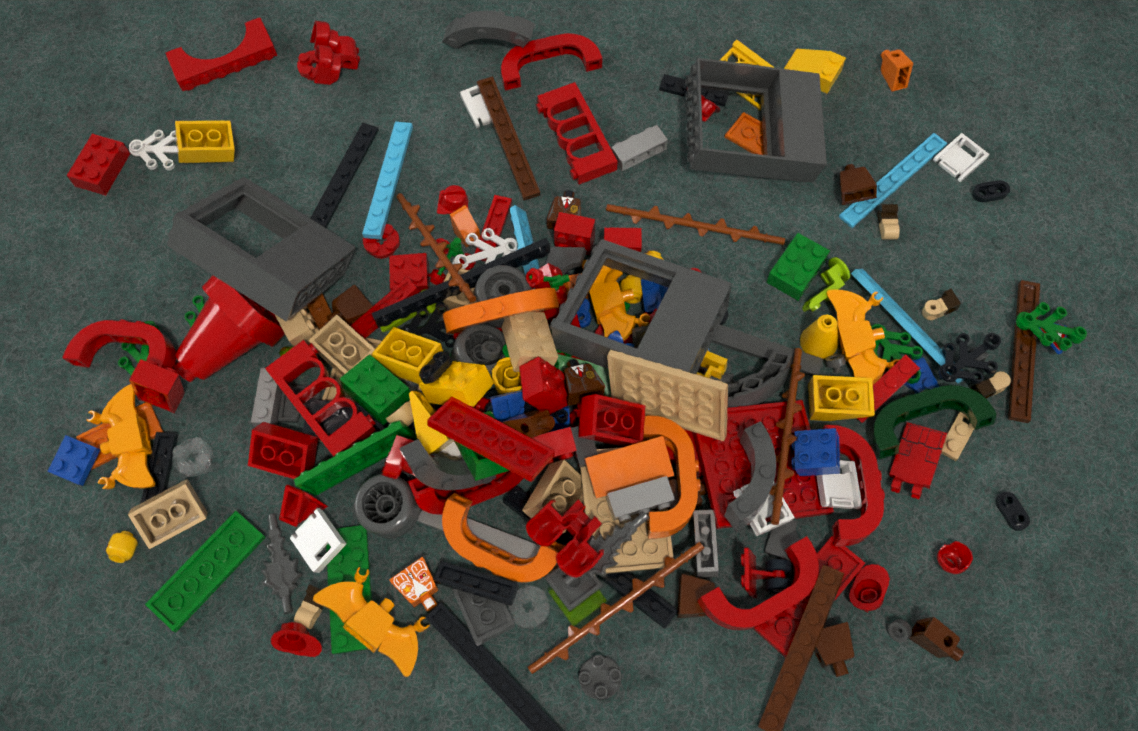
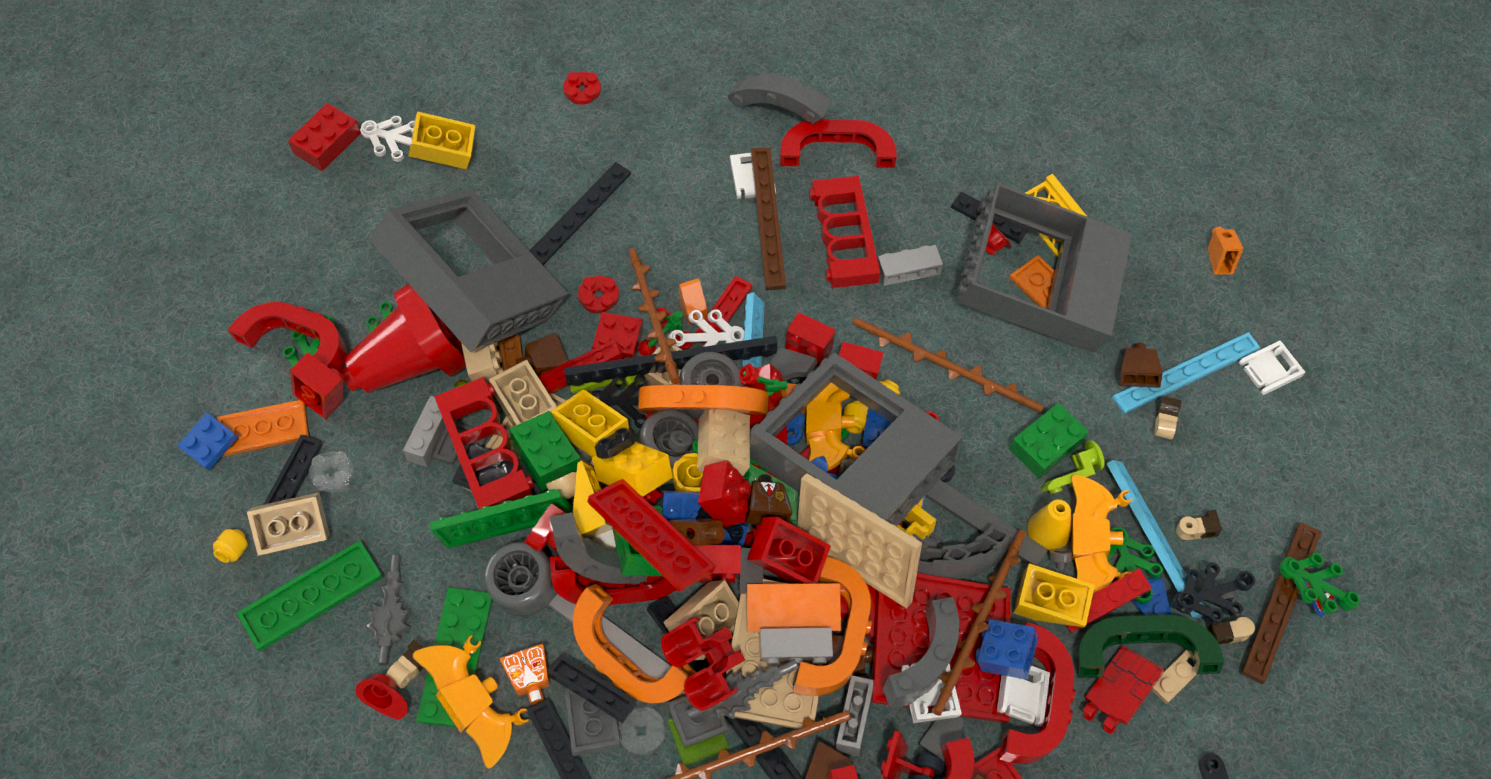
camera: 10 degrees right, 5 degrees down
(127, 441) = (268, 435): light orange torso -> none
(252, 50) = (522, 55): red arch -> none
(281, 450) = (426, 489): red brick -> none
(298, 506) = (427, 553): red slope -> none
(314, 536) = (434, 590): white container -> none
(330, 63) = (598, 90): red piece -> none
(387, 181) = (624, 231): medium azure plate -> none
(452, 199) = (687, 269): red piece -> none
(564, 204) = (808, 306): reddish brown torso -> none
(818, 61) = (1145, 225): yellow slope -> none
(989, 191) = (1294, 413): black plate -> none

